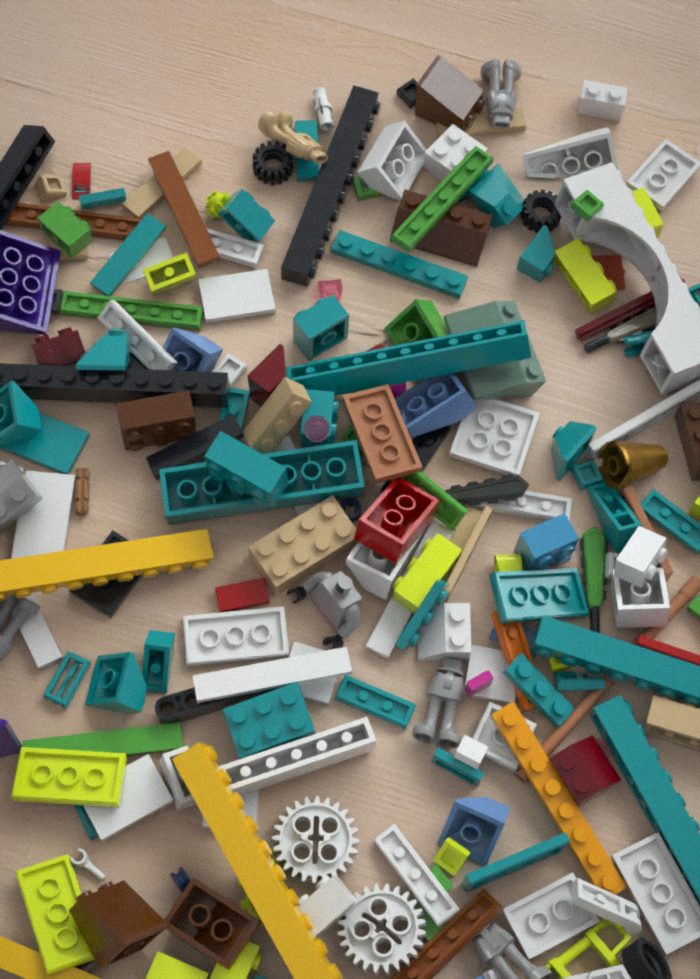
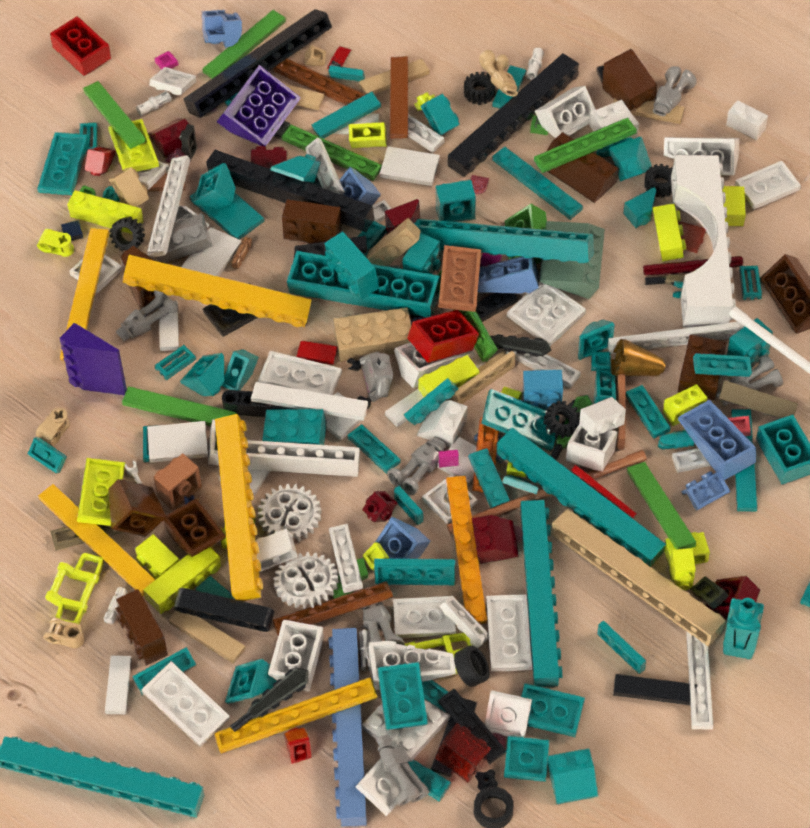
camera: 30 degrees right, 10 degrees down
(65, 229) = (310, 84): bright green brick -> none
(69, 777) = (147, 415): neon yellow tile -> none
(154, 859) = (176, 481): none -> nougat brick
(316, 428) = (414, 258): clear pink tile -> none
(425, 785) = (379, 506): none -> dark red brick
(471, 752) = (420, 496): white tile -> none
(587, 205) = (682, 177): bright green tile -> none
(598, 568) = (558, 428): none -> black tyre

